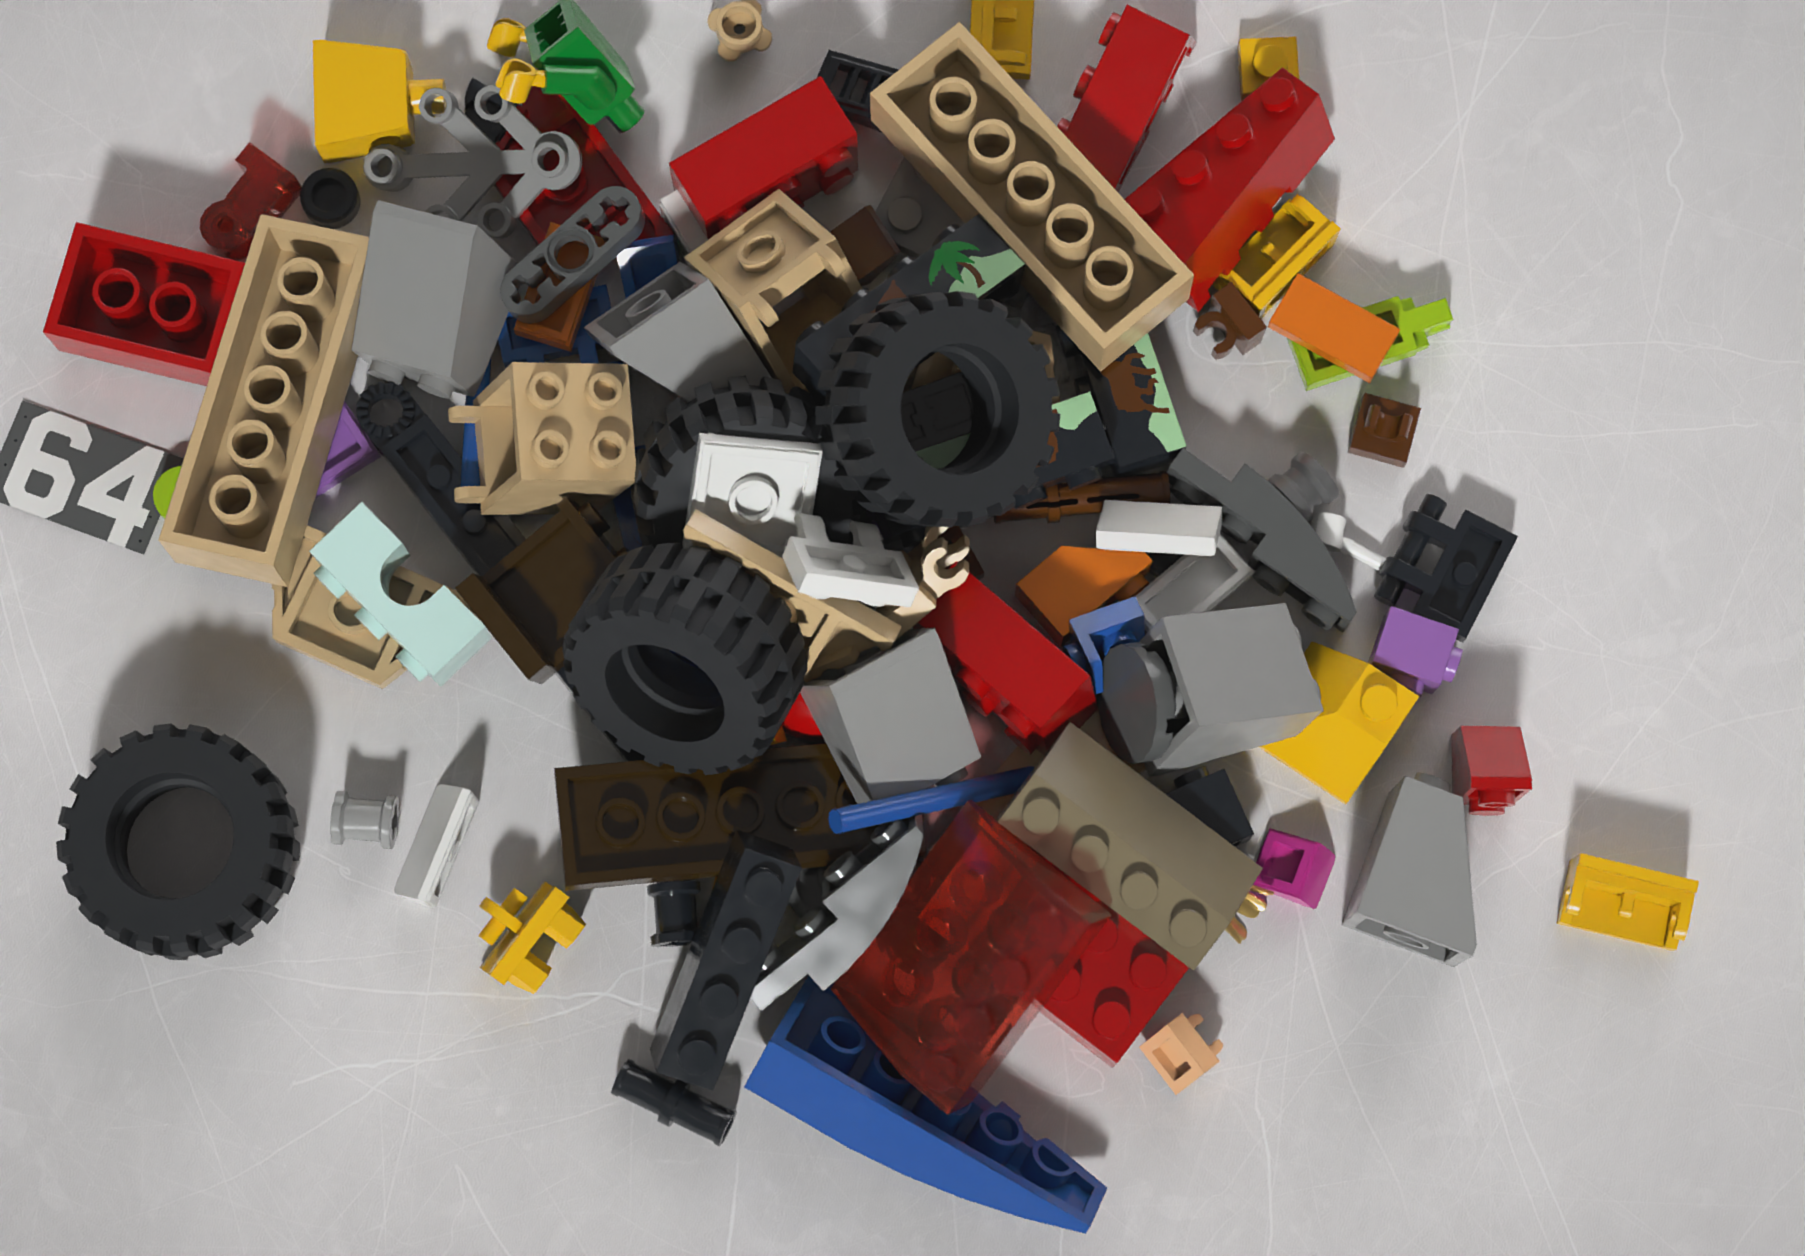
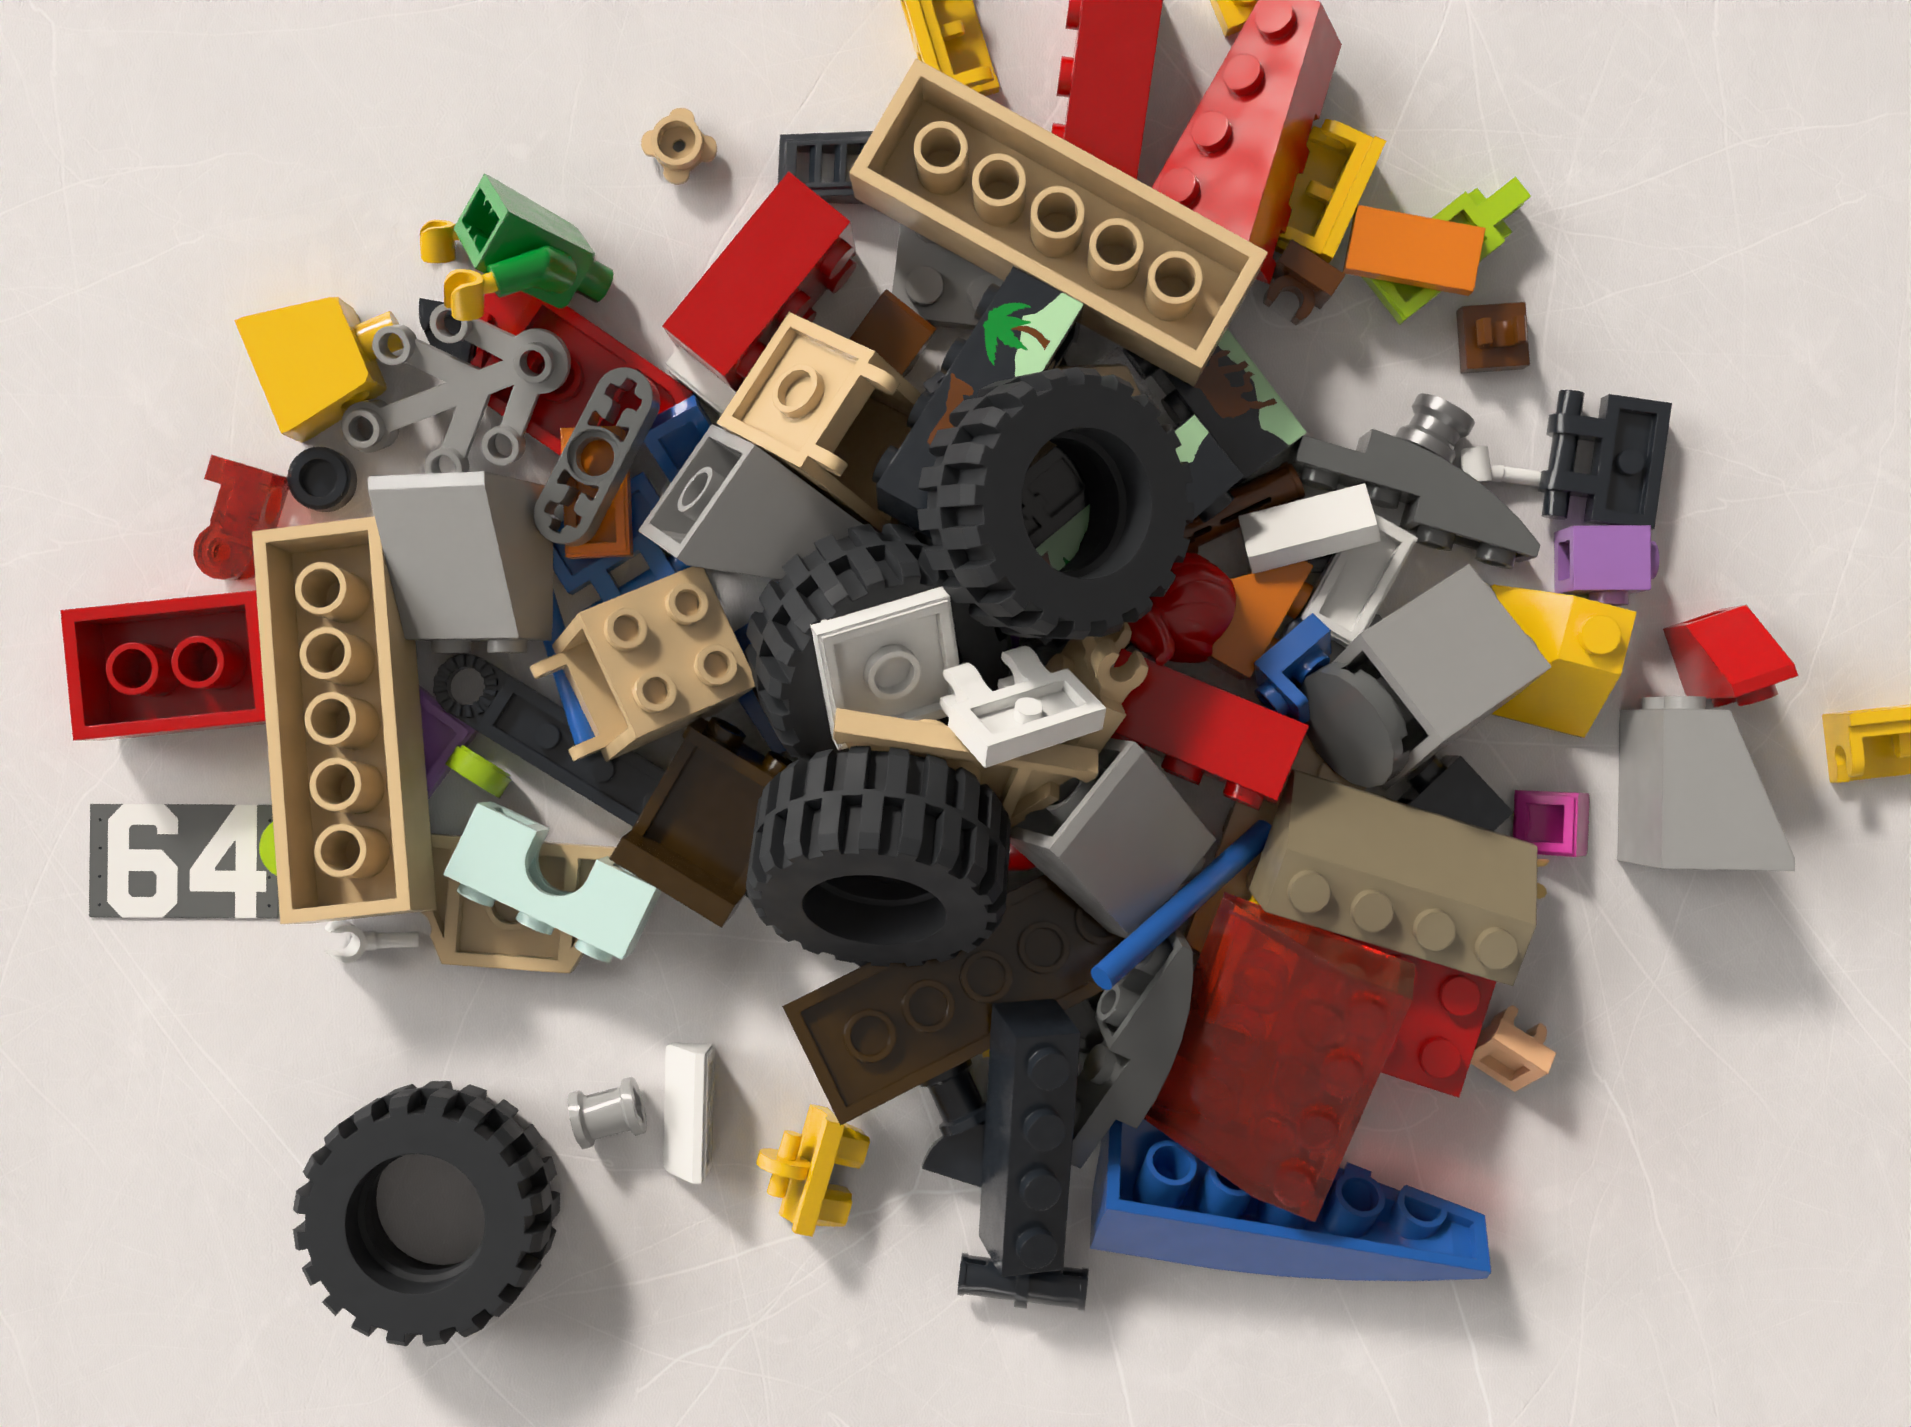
camera: 15 degrees left, 10 degrees up
(217, 599) = (367, 941): none -> white hand
(368, 486) = (479, 770): none -> lime tile
(657, 969) = (958, 1156): none -> black tile
(1022, 555) = (1189, 615): none -> red hair

